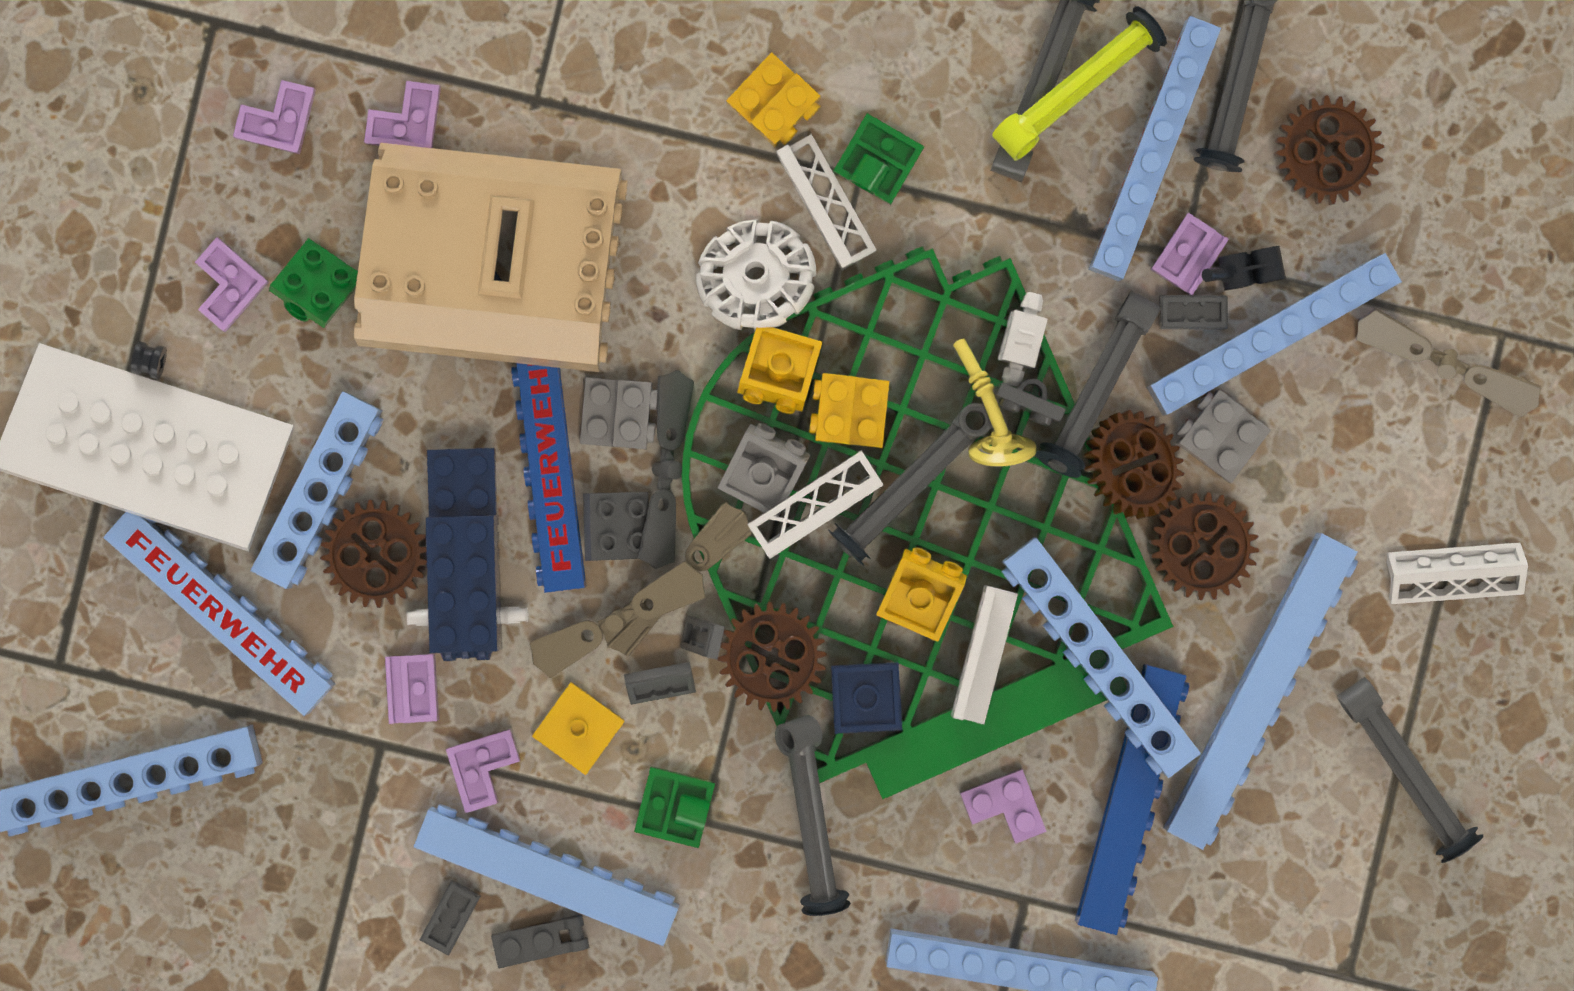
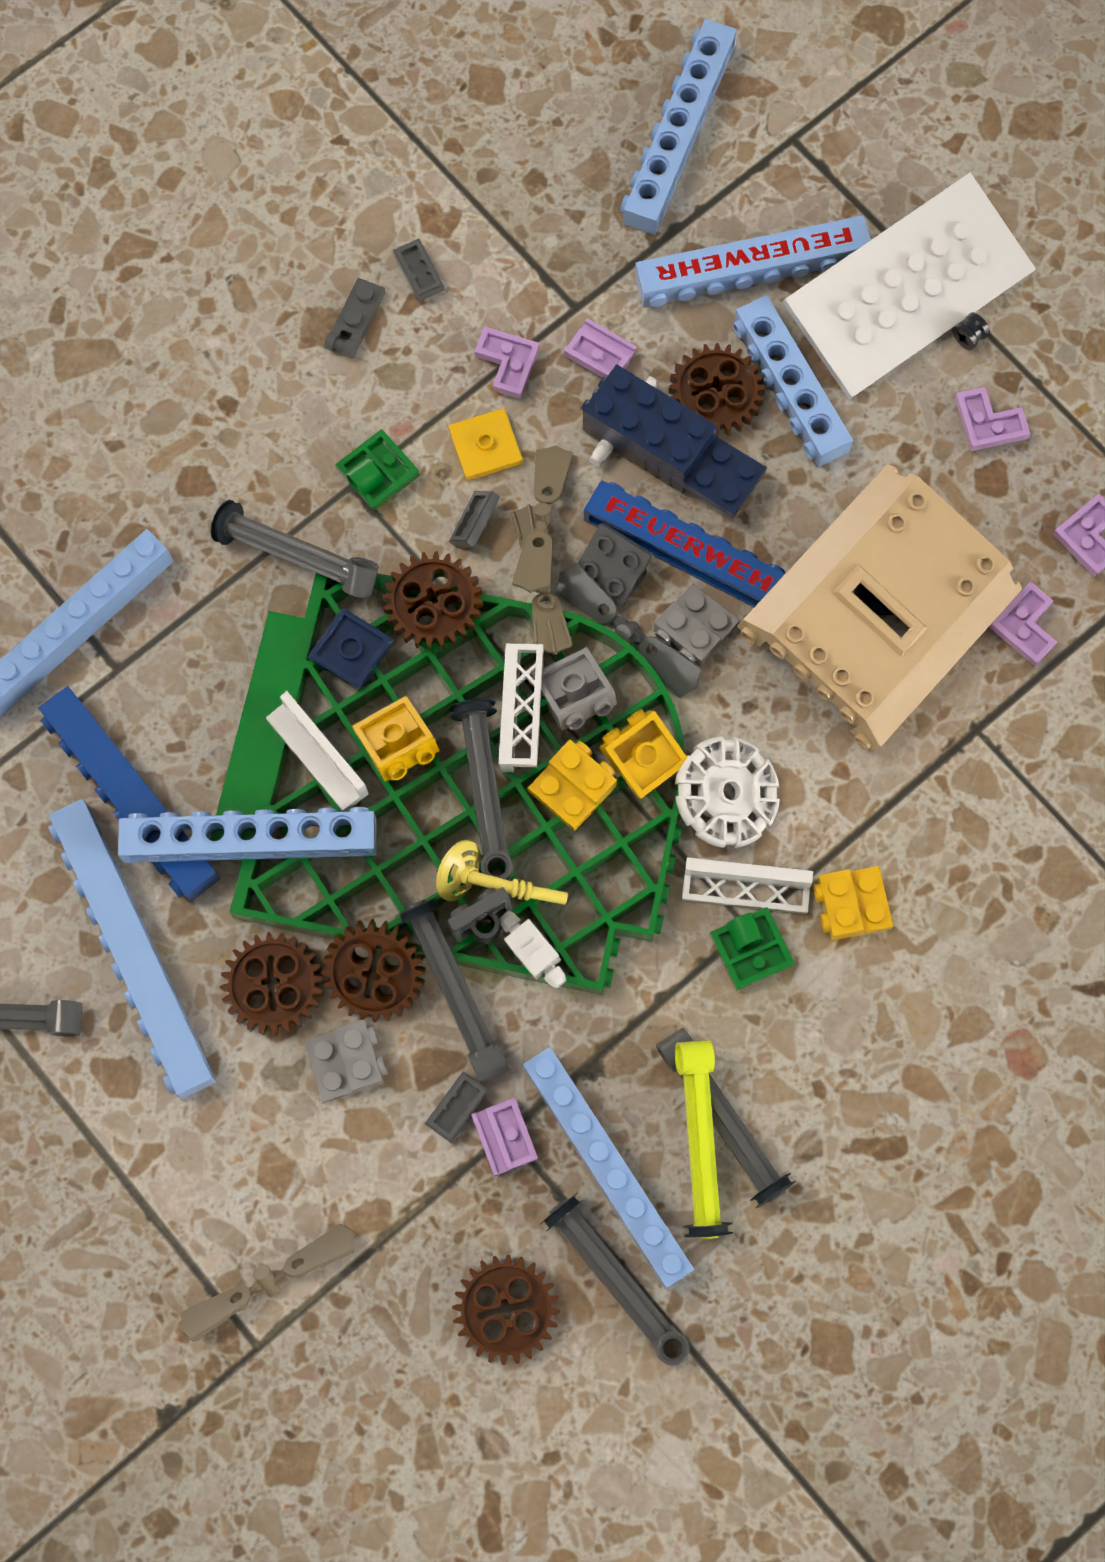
camera: 130 degrees right, 15 degrees down
(314, 284) = (950, 473): green plate -> none
(547, 875) = (396, 351): light blue brick -> none
(702, 637) = (485, 566): dark grey plate -> none
(1009, 796) = (199, 710): lavender plate -> none
(1246, 269) = (461, 1172): black beam -> none
(1274, 334) = (393, 1157): light blue brick -> none
(1458, 567) = (104, 1169): white fence -> none

